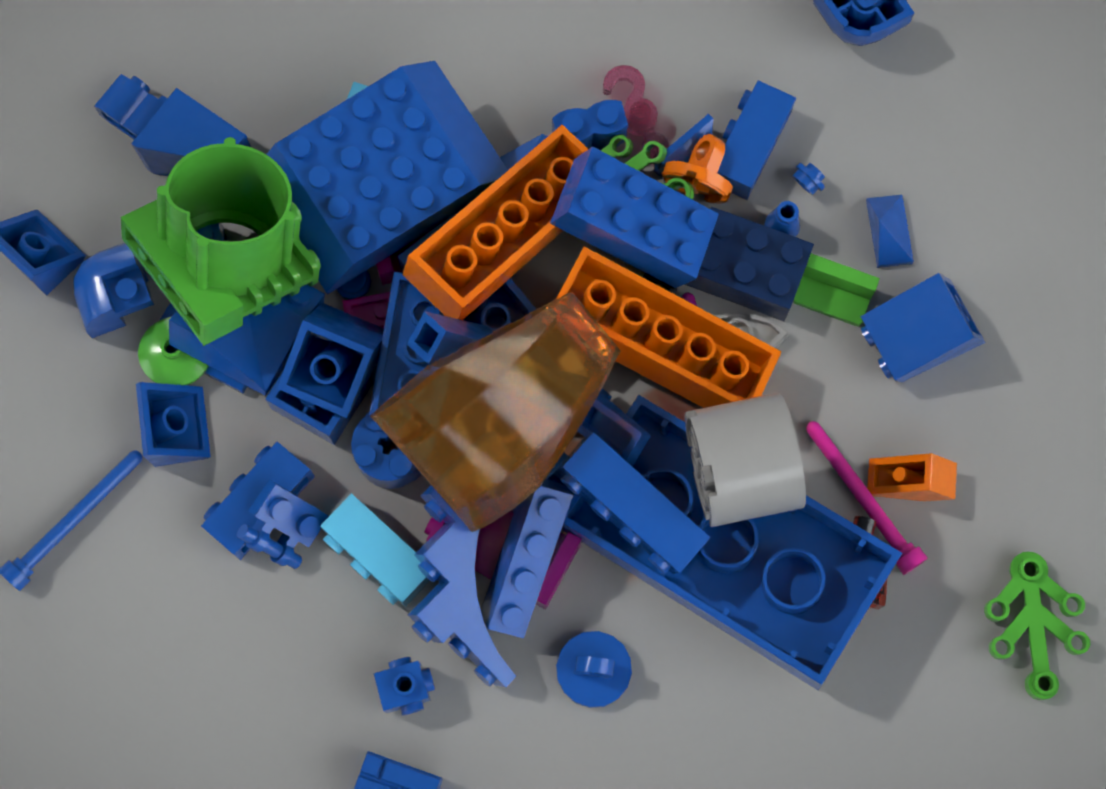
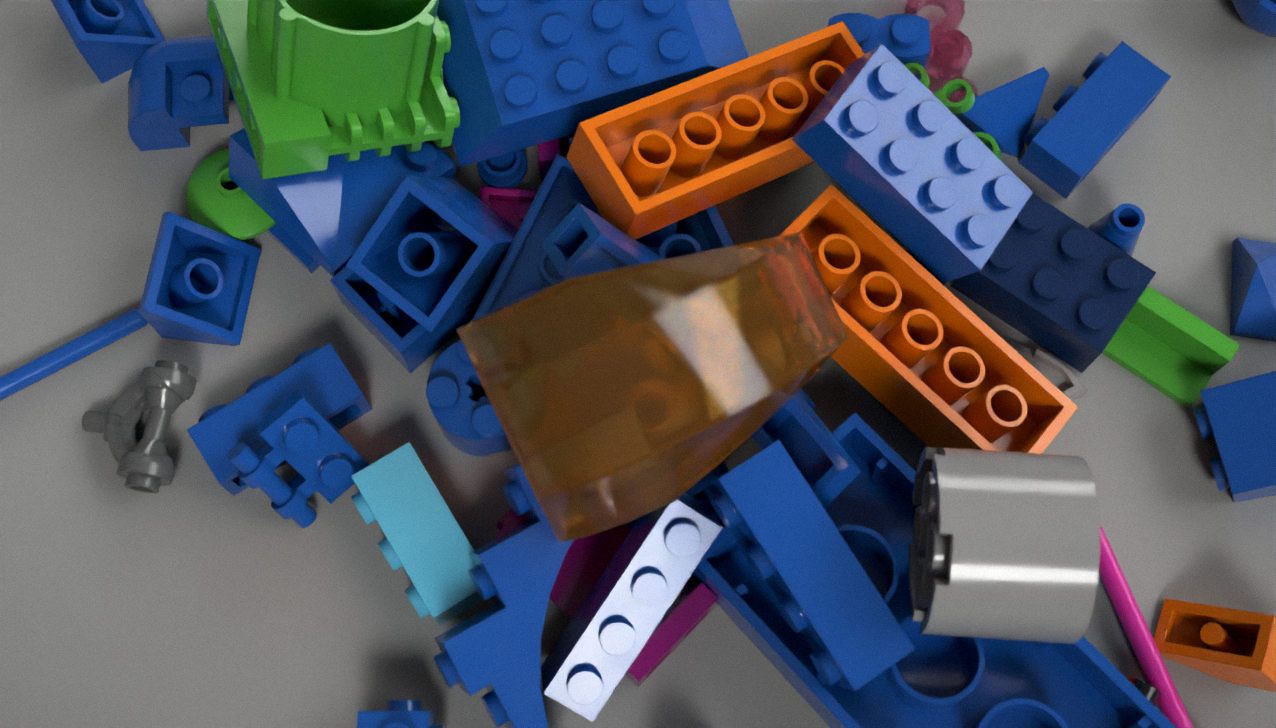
camera: 15 degrees right, 5 degrees down
(177, 554) = (147, 462): none -> dark grey piece
(702, 170) = (1021, 136): orange tile -> none
(809, 178) = (1162, 189): blue plate -> none

